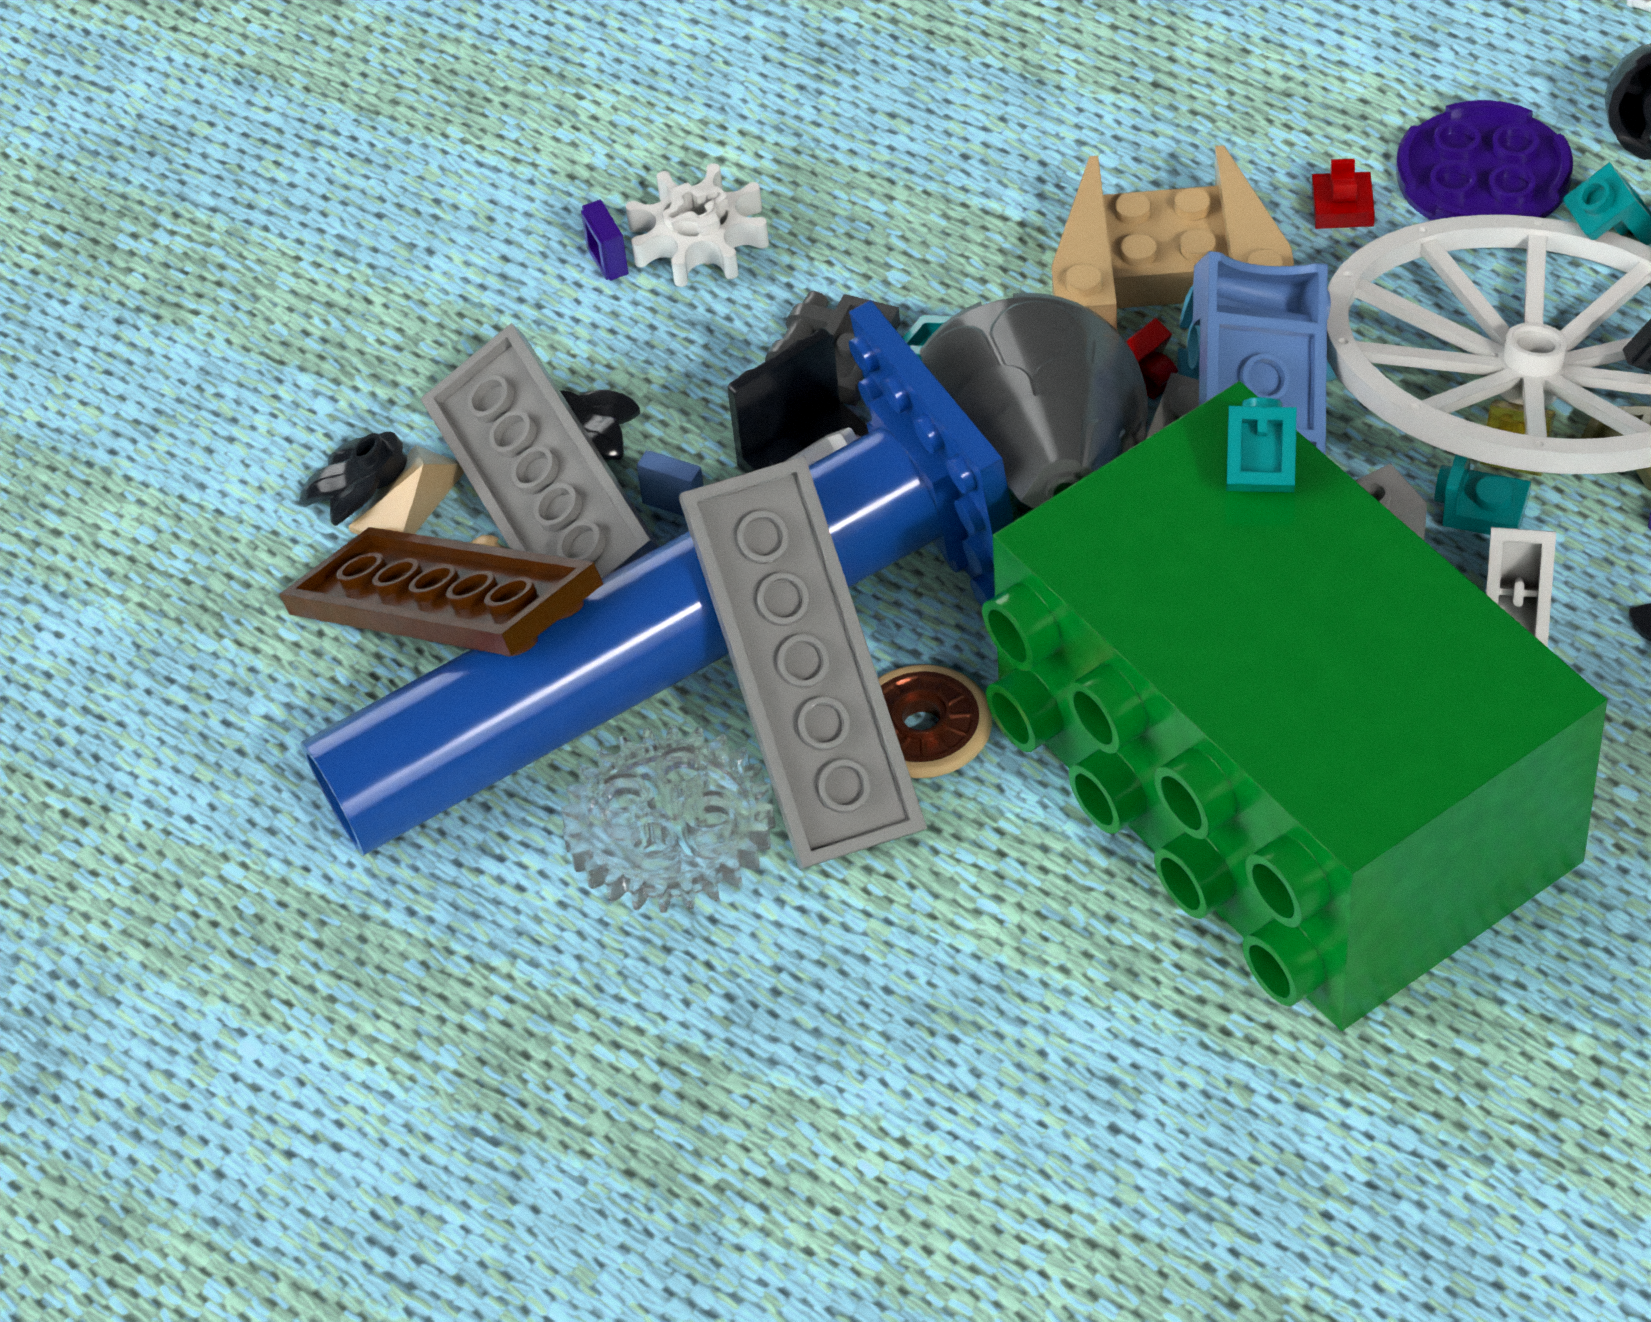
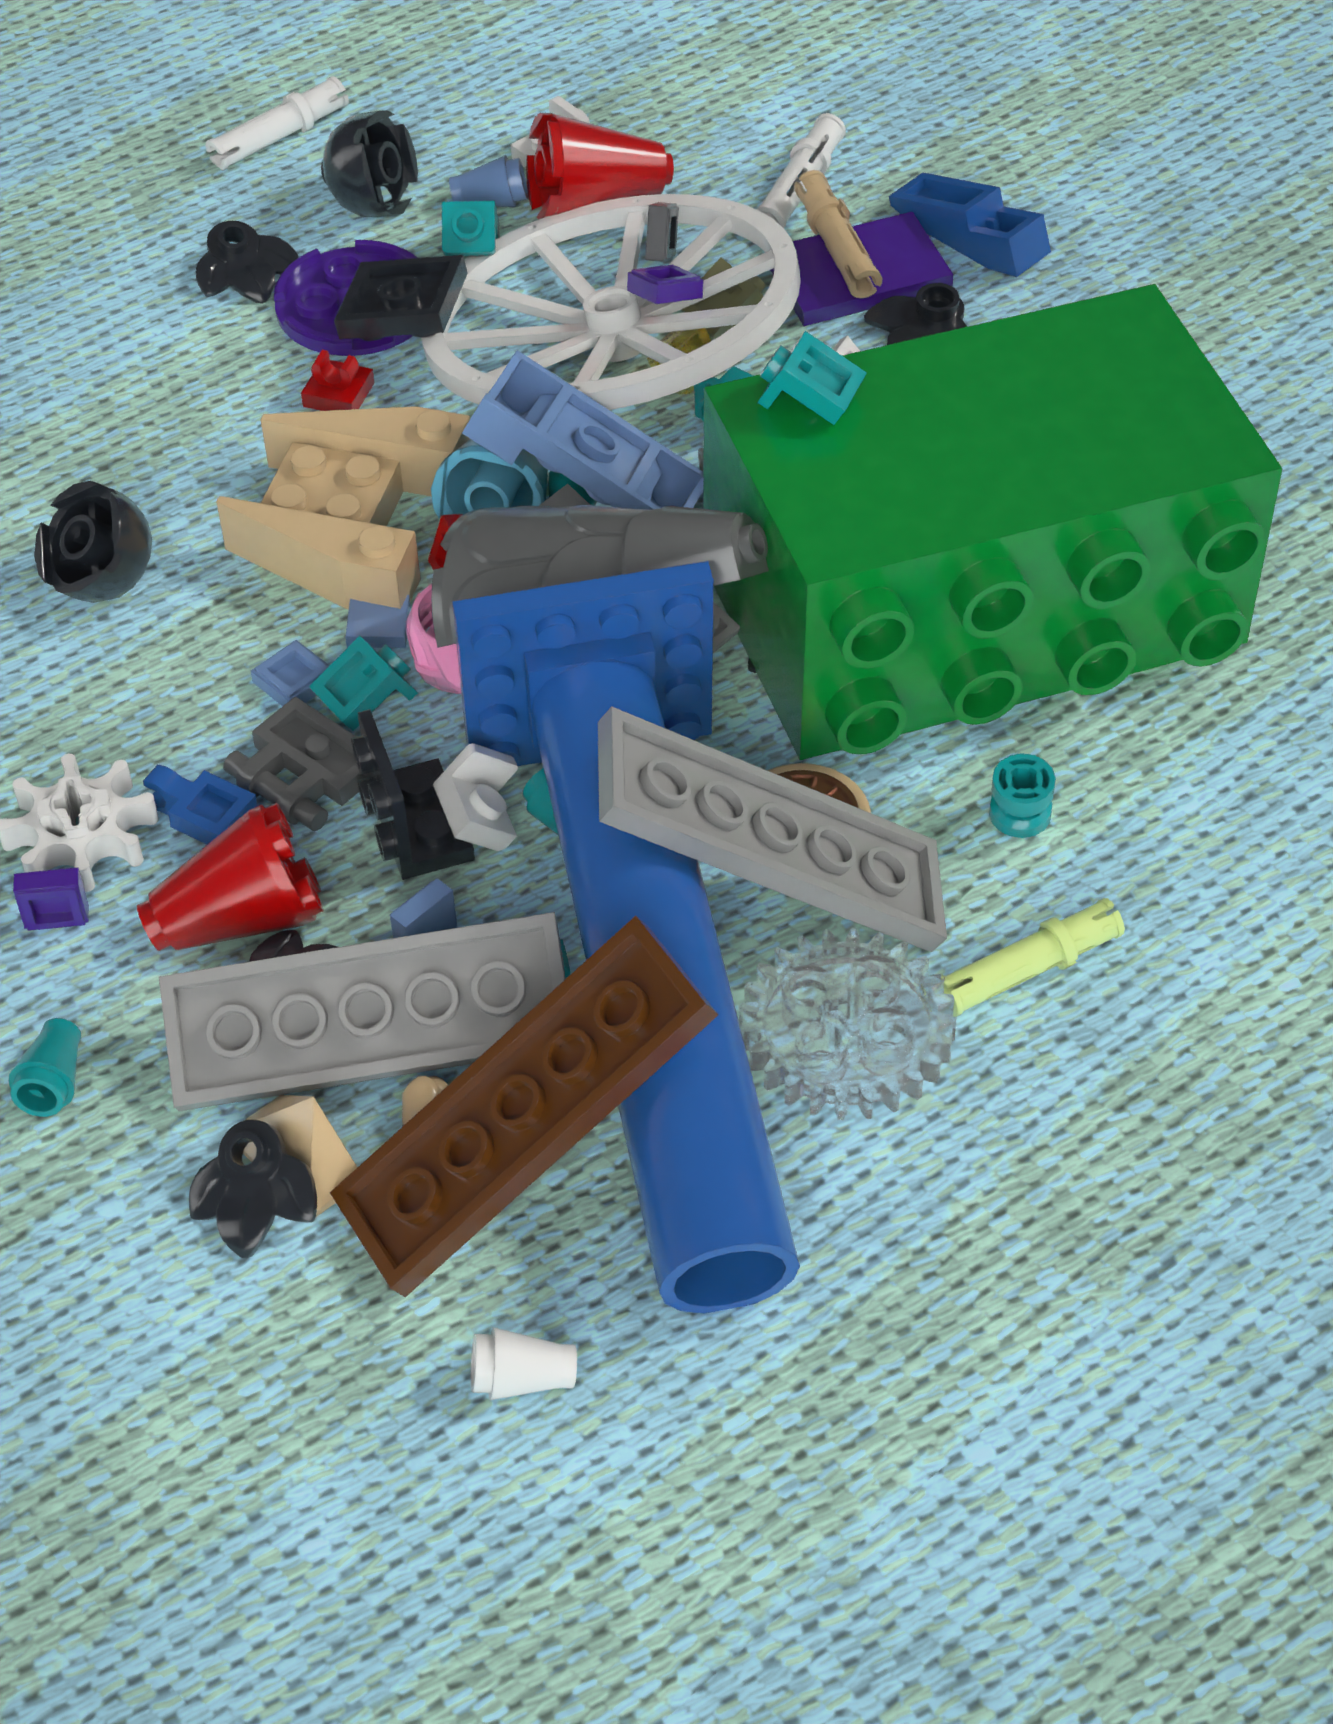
camera: 75 degrees left, 0 degrees up
(232, 698) = (520, 1364): none -> white cone
(434, 308) = (47, 1071): none -> teal cone
(660, 350) = (234, 887): none -> red cone
(751, 301) = (198, 807): none -> blue plate
(825, 952) = (1053, 945): none -> yellowish green pin
(941, 297) = (289, 673): none -> medium blue tile
(1003, 876) = (1022, 795): none -> teal wheel
(1012, 107) = (93, 543): none -> black cylinder
(1457, 186) = (401, 297): none -> black plate
(1478, 70) = (244, 266): none -> black plate
(1569, 369) = (665, 284): none -> dark purple tile

